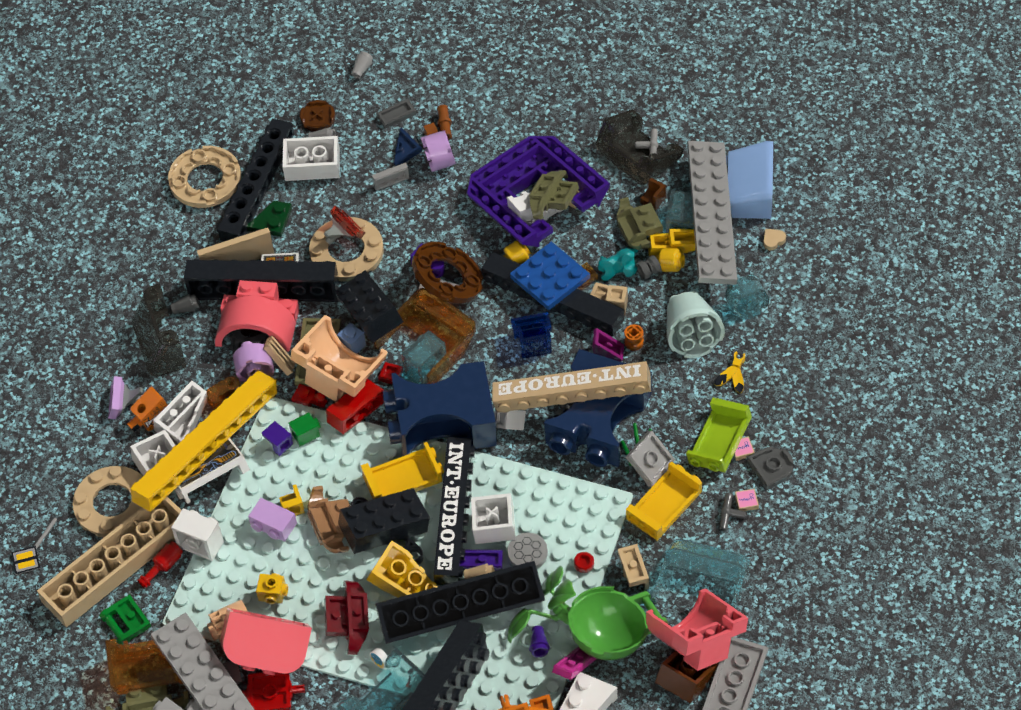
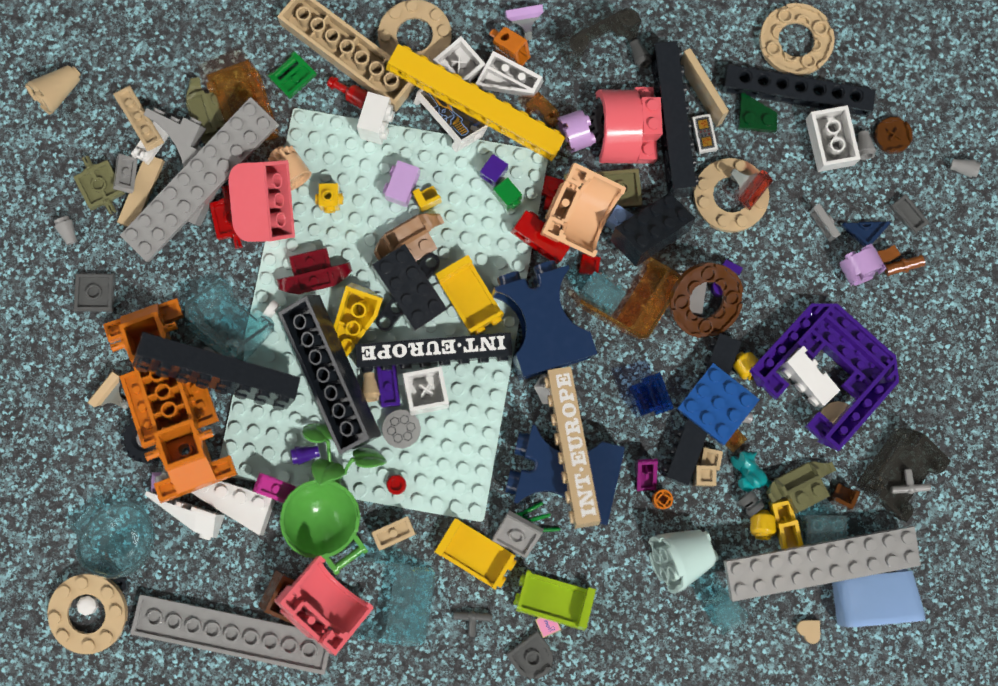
camera: 75 degrees right, 25 degrees up
(279, 355) = (589, 154): tan tile -> none
(552, 193) = (818, 391): olive plate -> none
(733, 372) = (636, 607): yellow piece -> none
(746, 500) = (488, 635): bright pink tile -> none

